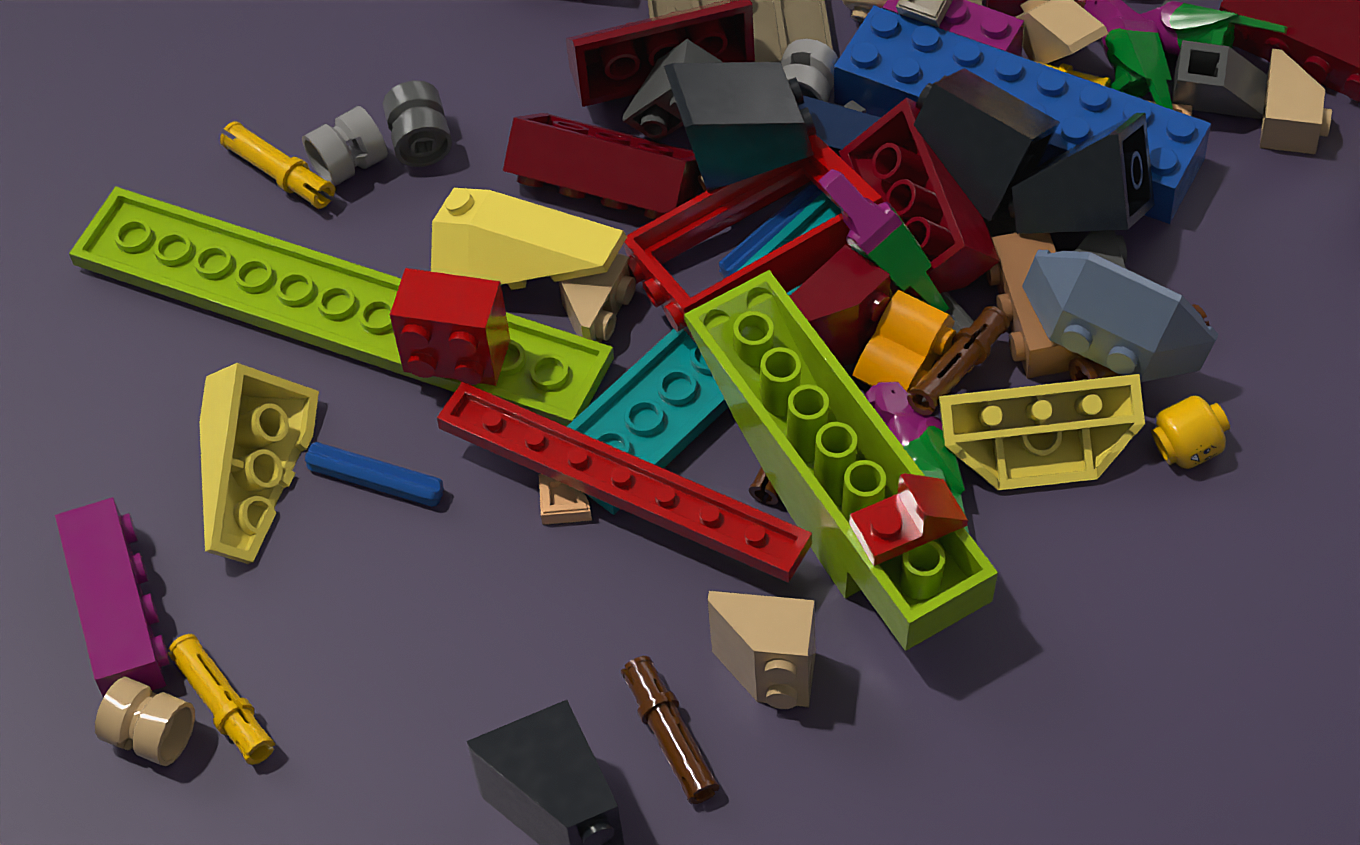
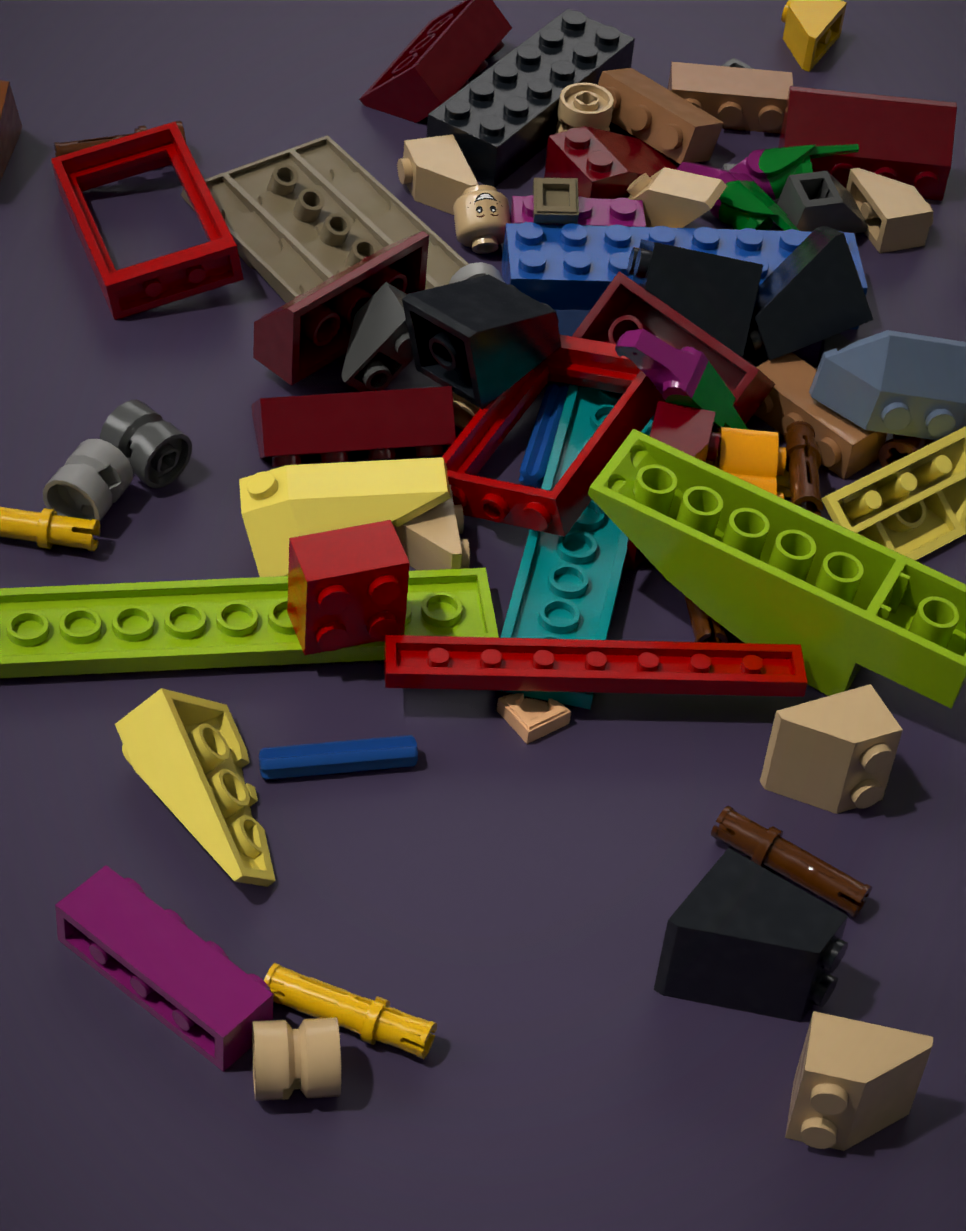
camera: 40 degrees left, 10 degrees down
(912, 517) = (907, 585): red slope -> none

